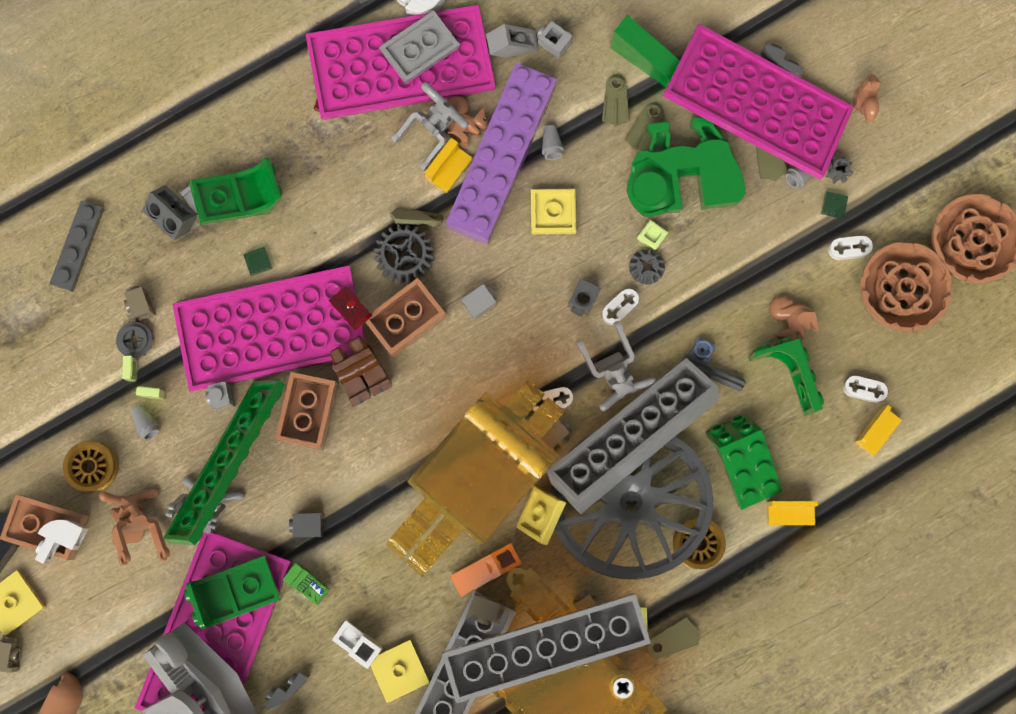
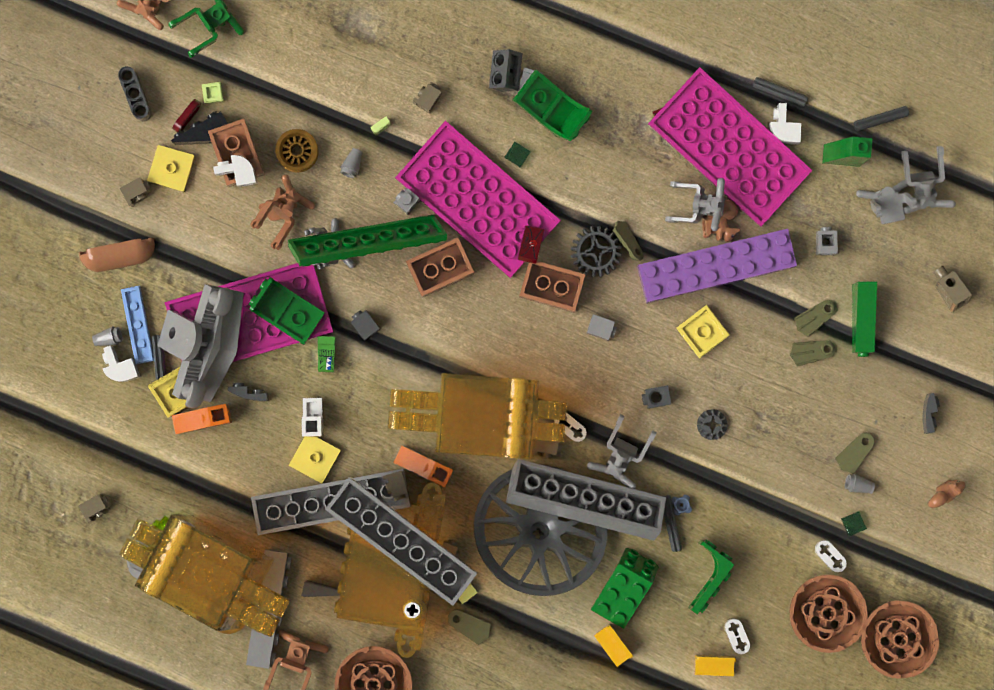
camera: 55 degrees right, 5 degrees up
(76, 246) = (436, 23): dark grey plate -> none
(126, 334) = (402, 104): dark grey gear -> none
(150, 392) = (375, 152): yellowish green tile -> none
(358, 364) = (496, 277): reddish brown hips -> none
(419, 47) = (748, 153): light grey plate -> none
(448, 166) = (681, 235): yellow panel -> none
(511, 41) = (803, 213): light grey slope -> none
(540, 515) = (486, 476): light yellow plate -> none
(552, 145) = (750, 295): light grey cone -> none
(616, 303) = (668, 431): white beam -> none
(652, 235) = (737, 412): yellowish green tile -> none
(655, 173) = (781, 382): green animal -> none
(718, 552) = (546, 614): pearl gold wheel -> none
(759, 101) = (886, 418): dark pink plate -> none
(797, 315) = (753, 555): nougat animal -> none
(839, 175) = (885, 506): dark grey gear -> none

